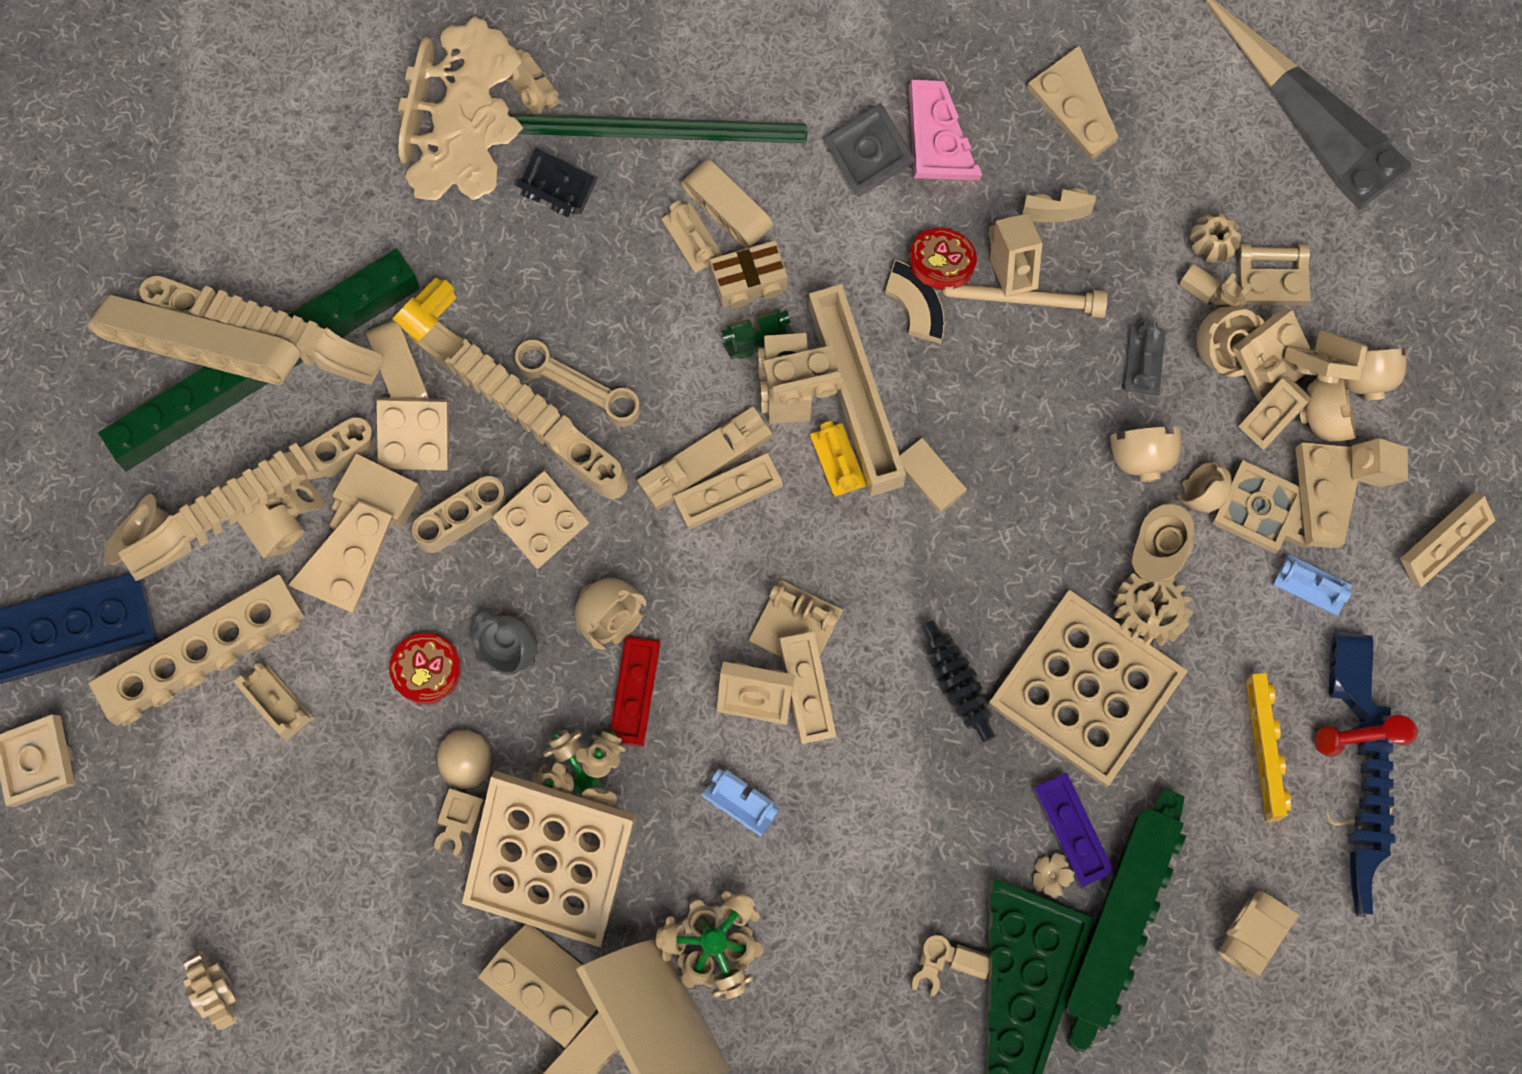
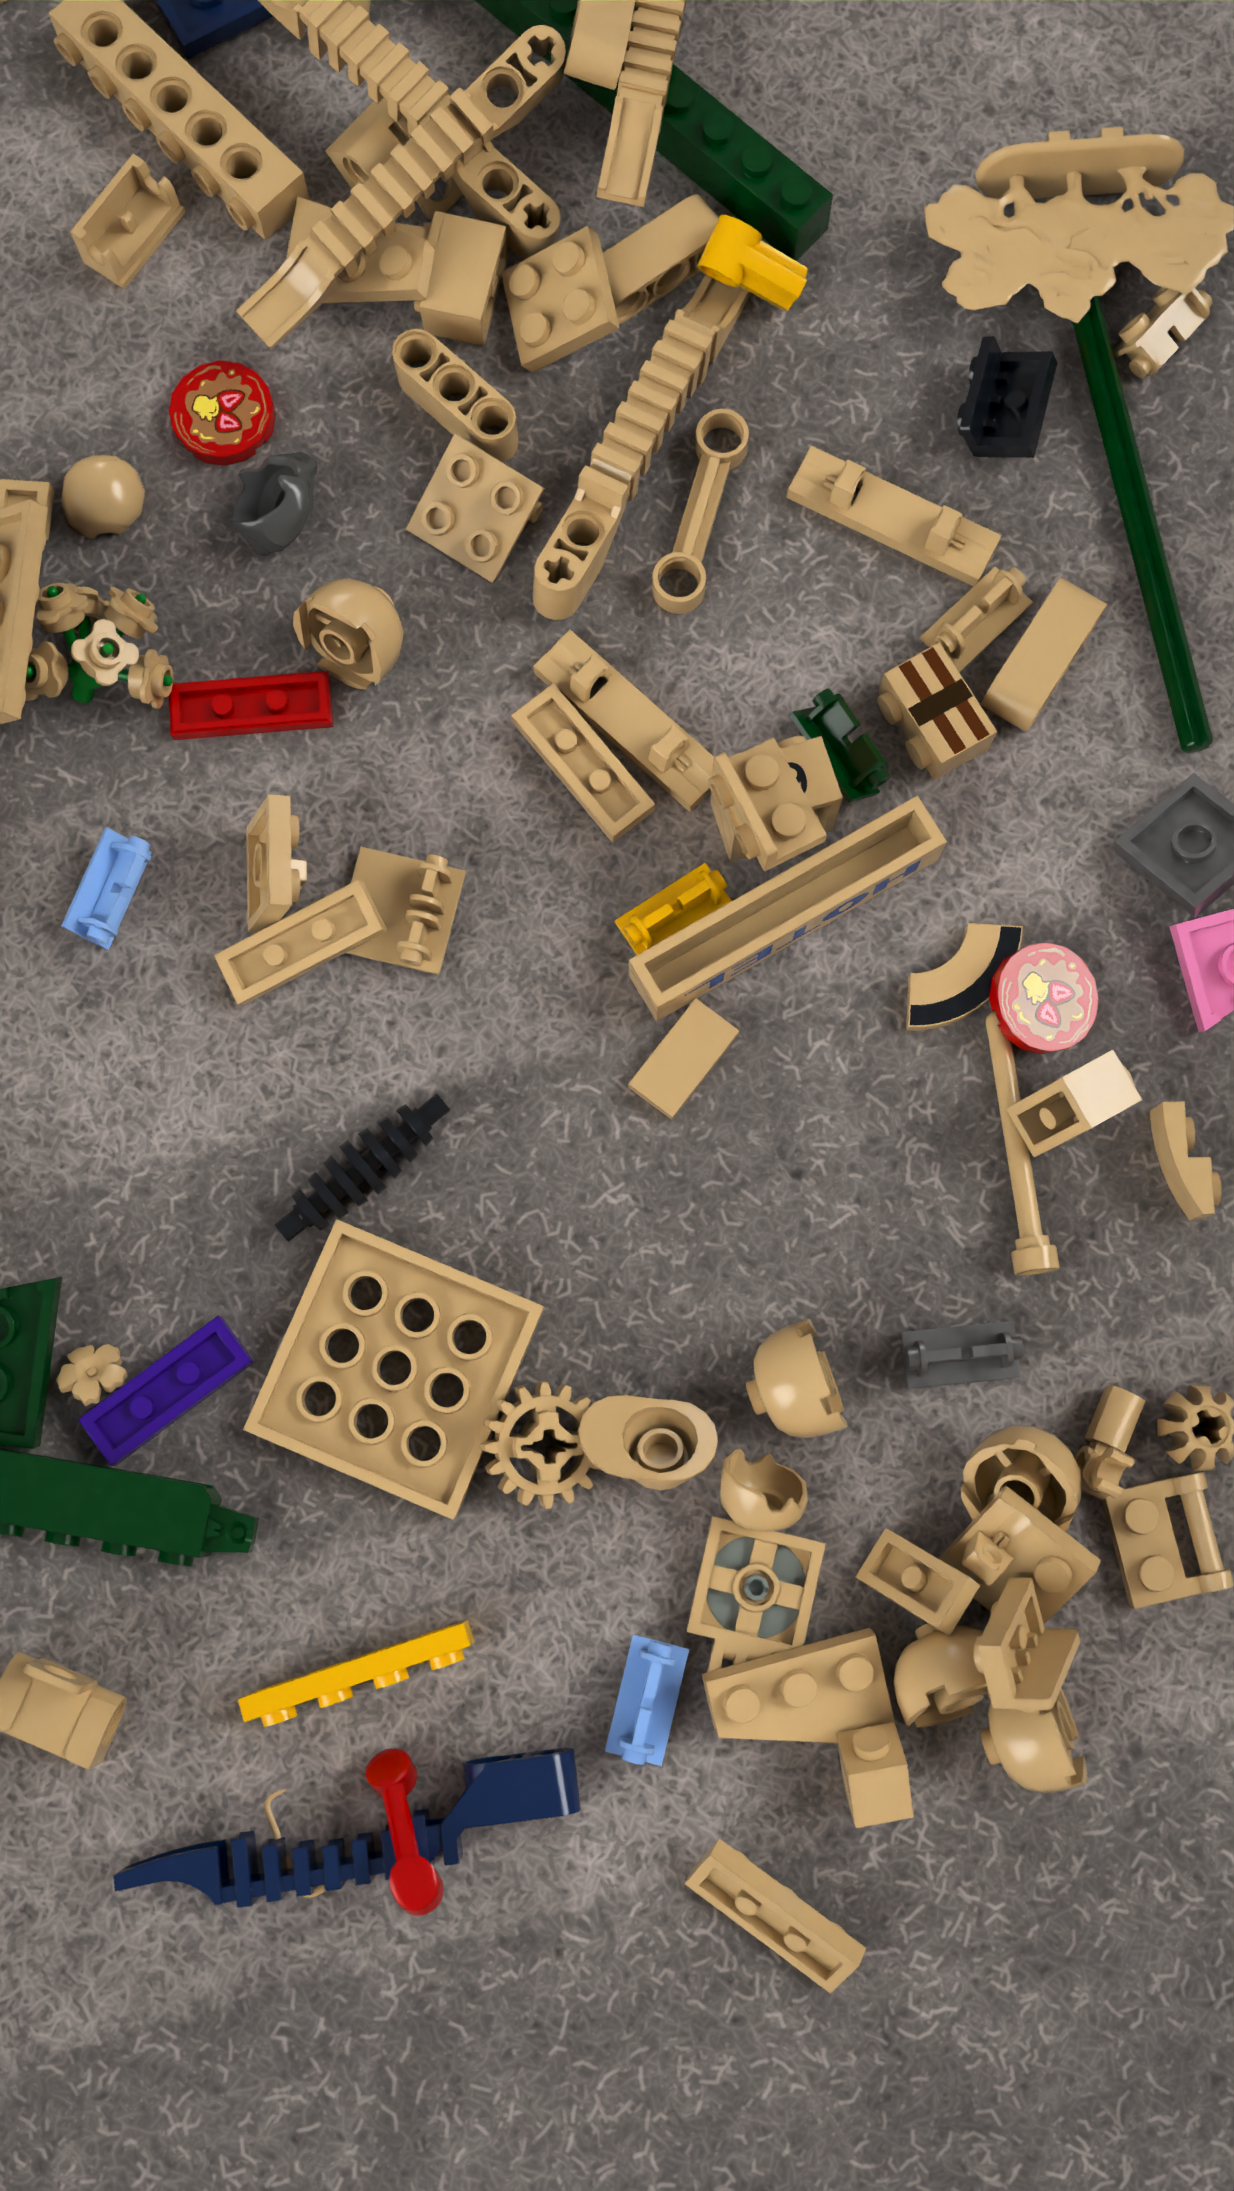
camera: 80 degrees right, 5 degrees up
(340, 523) = (430, 153): none -> tan piece
(610, 270) = (893, 516): none -> tan hinge

